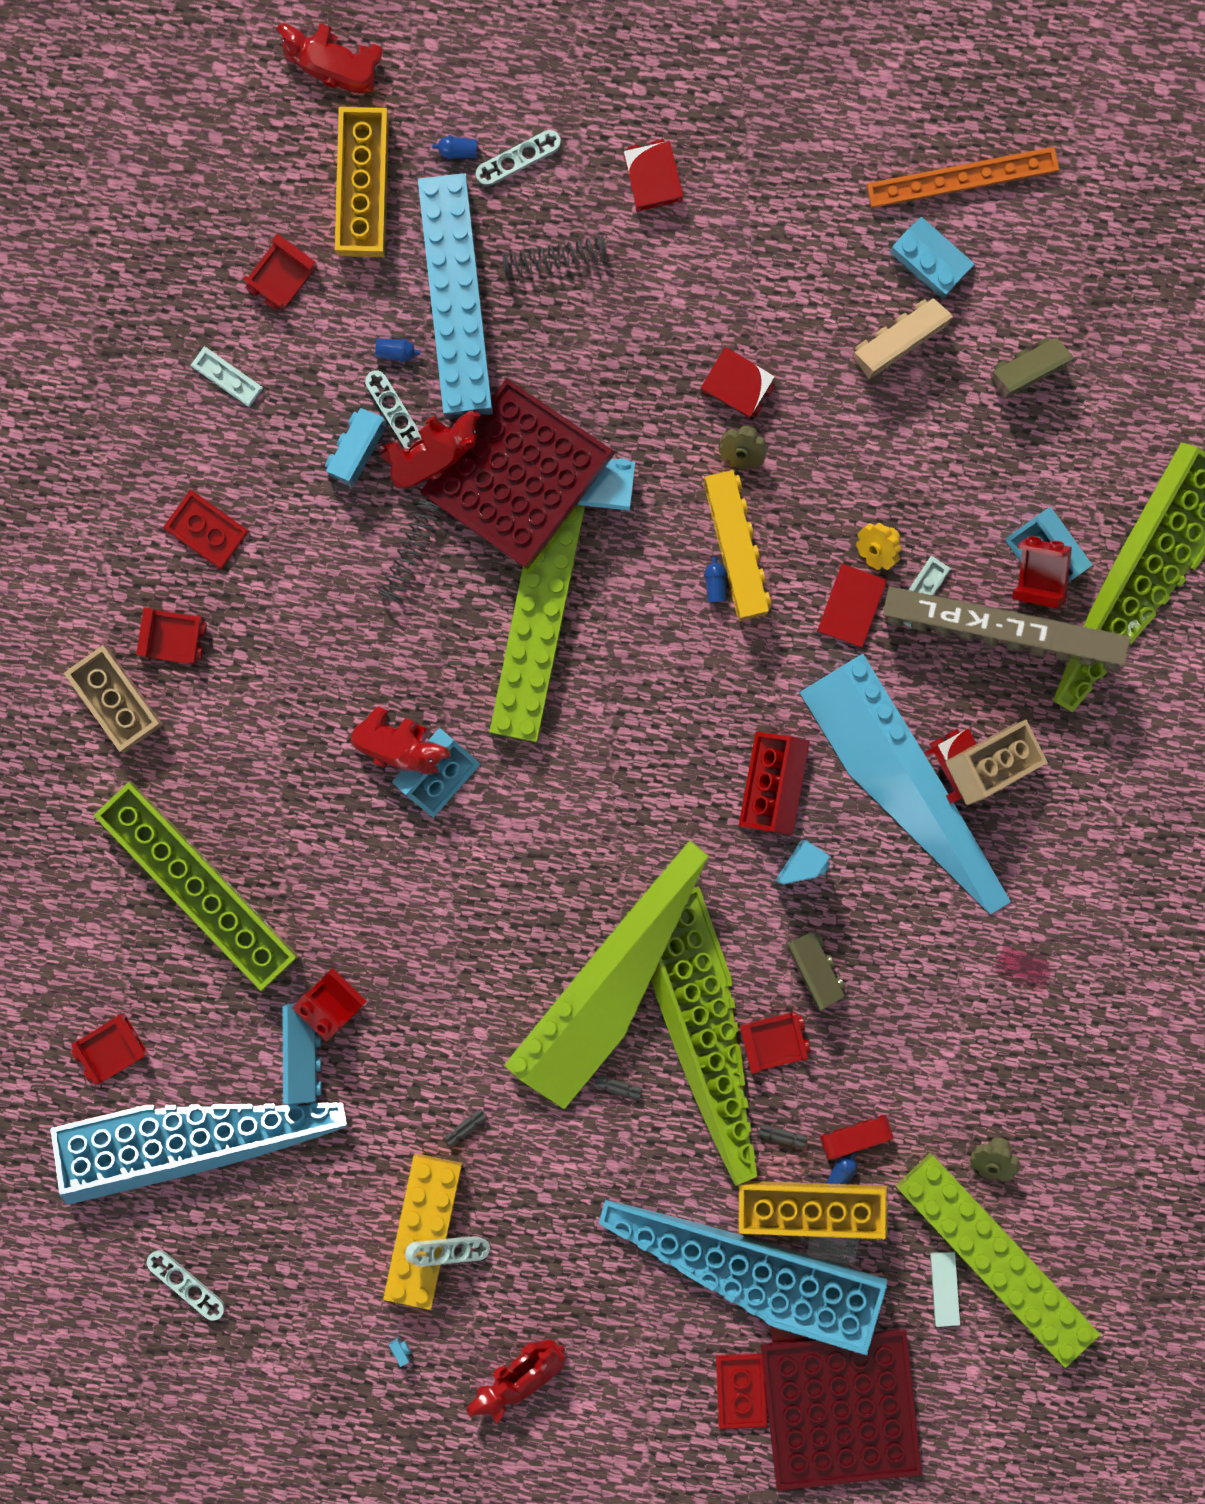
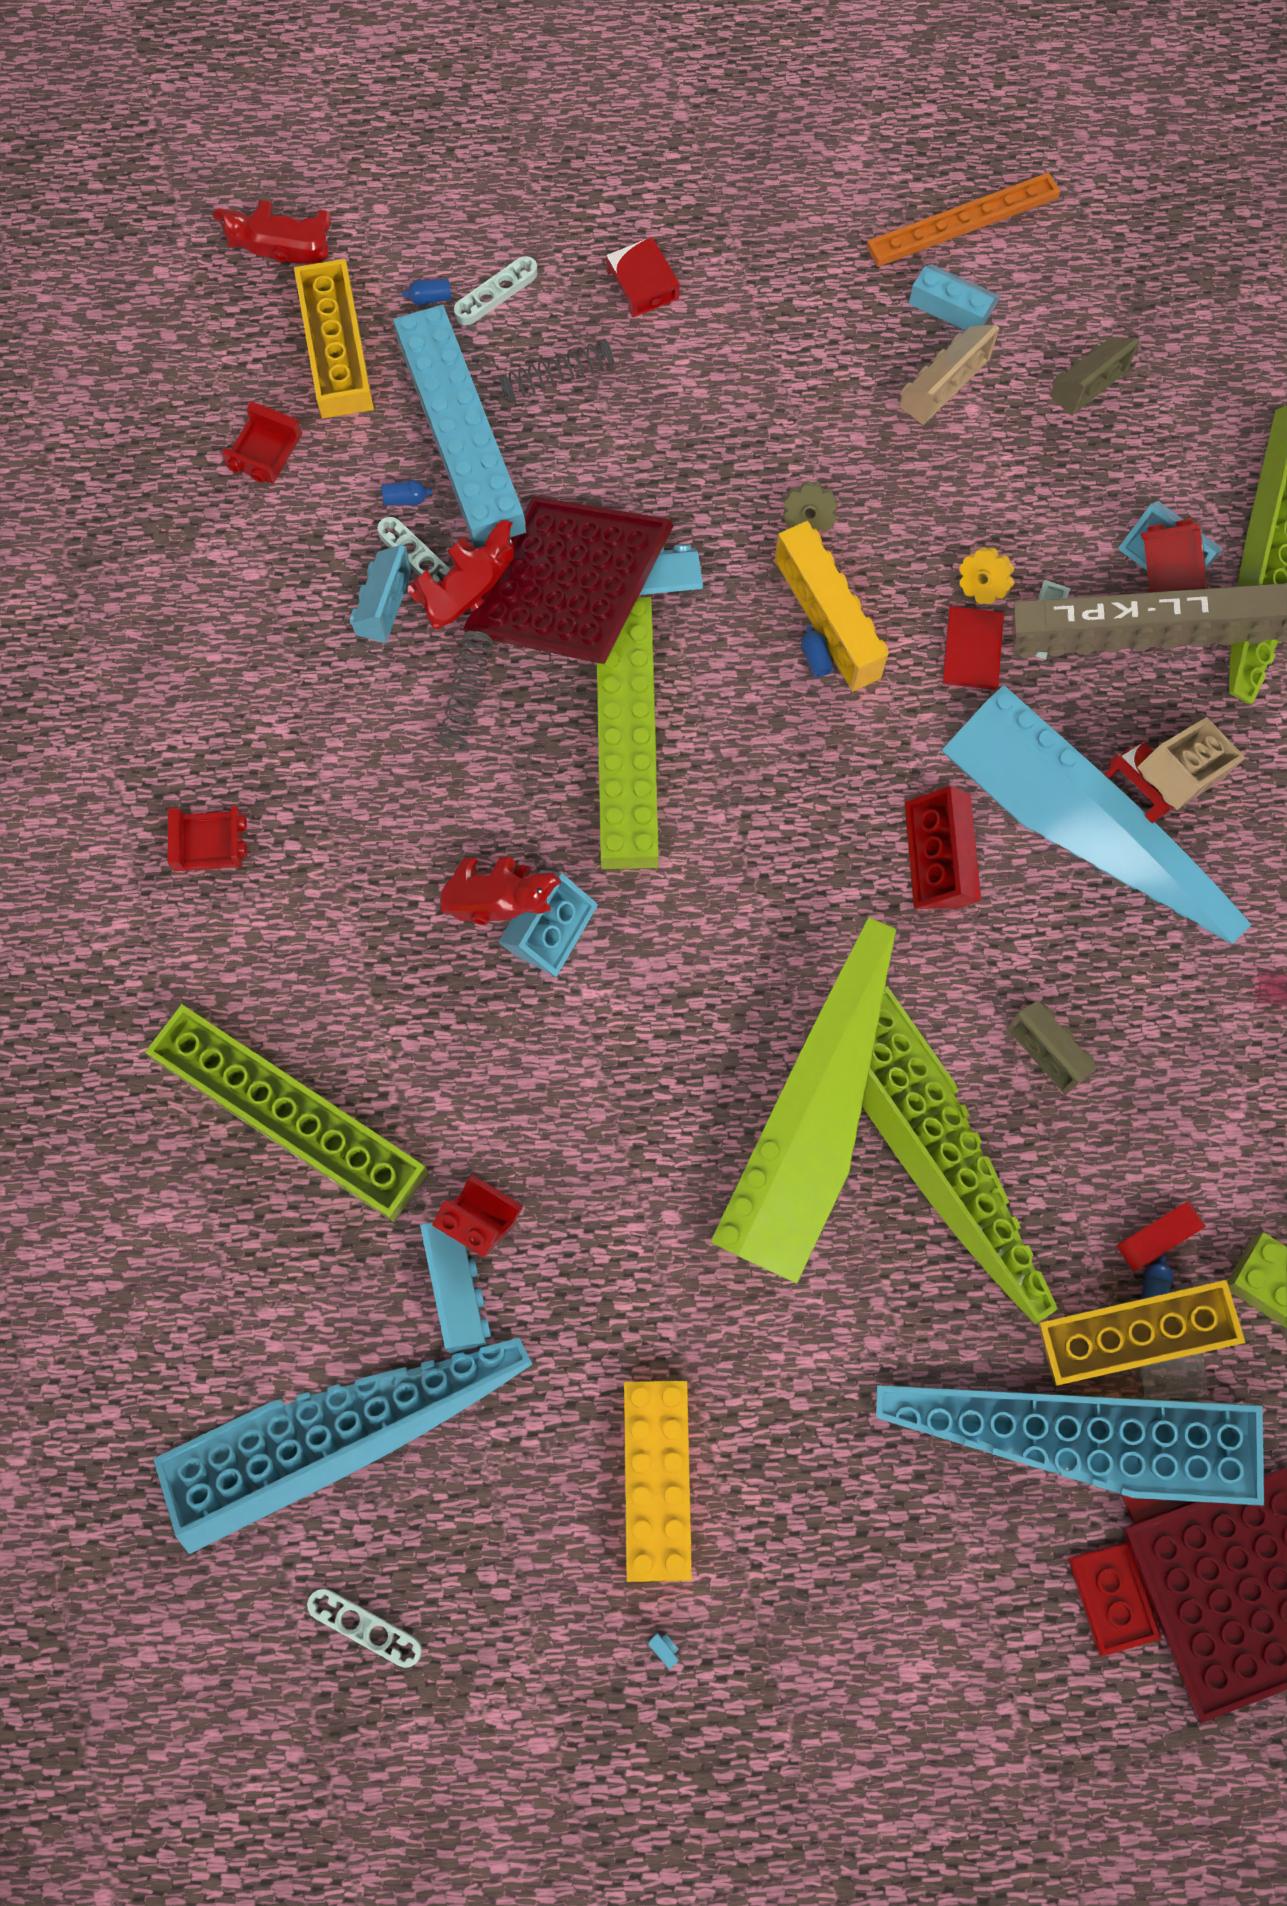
camera: 15 degrees left, 15 degrees down
(109, 1049) = (212, 1340): red panel -> none
(113, 699) = (149, 918): tan brick -> none
(206, 529) = (227, 719): red tile -> none
(226, 376) = (222, 559): light aqua tile -> none
(447, 1255) = (696, 1496): light aqua beam -> none
(465, 1127) = (680, 1336): dark grey axle -> none
(523, 1377) = (827, 1650): red animal -> none
(618, 1087) = (854, 1243): dark grey axle -> none
(738, 383) = (786, 449): red panel -> none
(774, 1041) = (1029, 1144): red panel -> none
(782, 1136) = (1070, 1257): dark grey axle -> none
(804, 863) = (1008, 921): medium azure slope -> none

